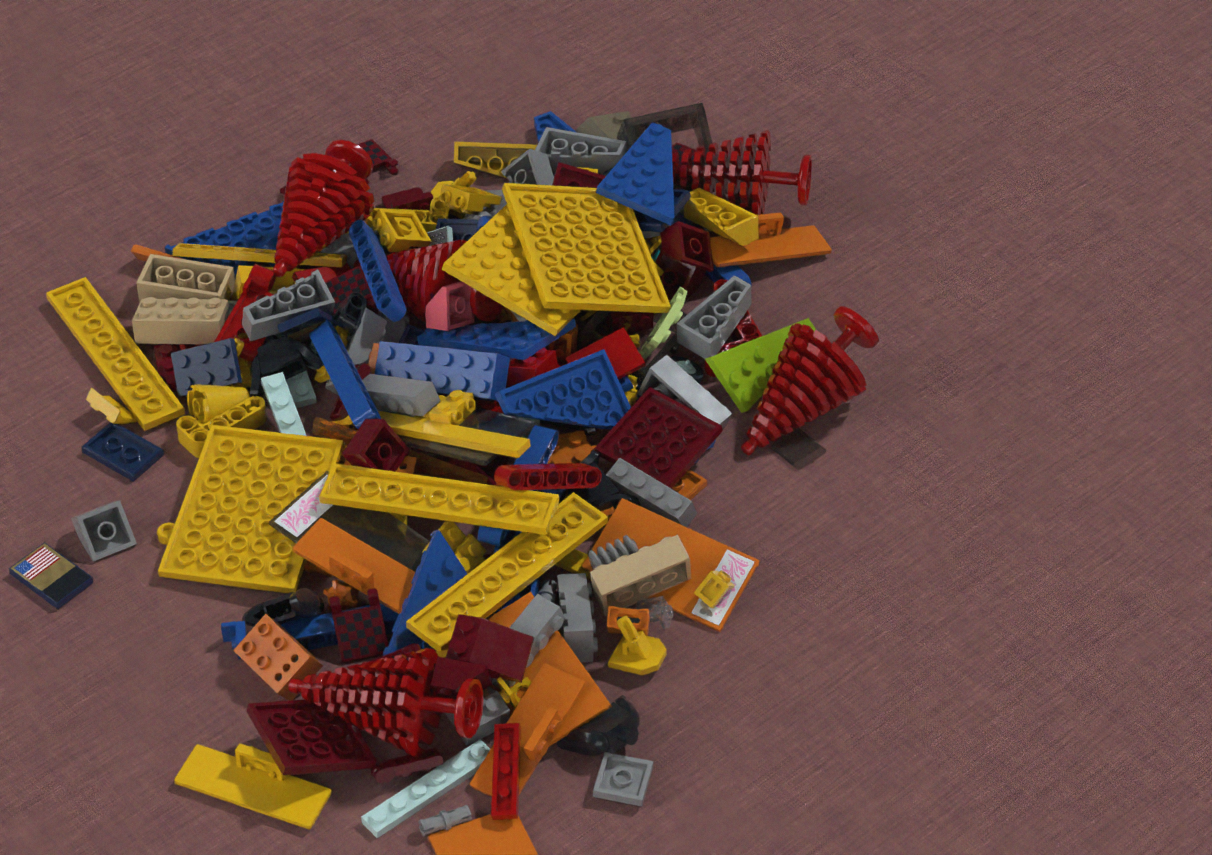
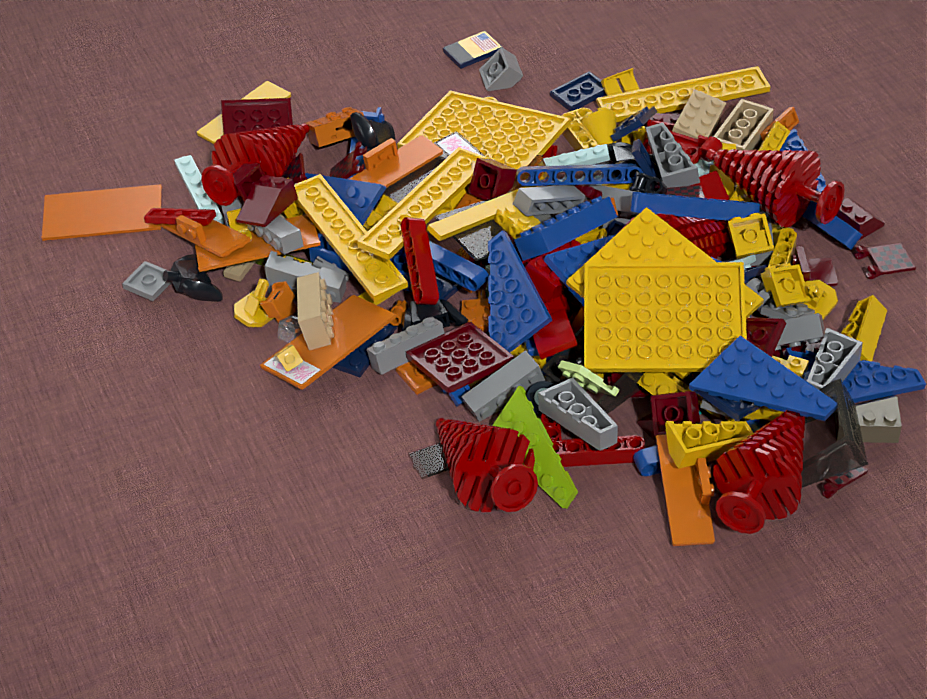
camera: 110 degrees right, 0 degrees up
(444, 820) = (166, 191): light grey pin -> none
(612, 553) = (341, 302): light grey piece -> none

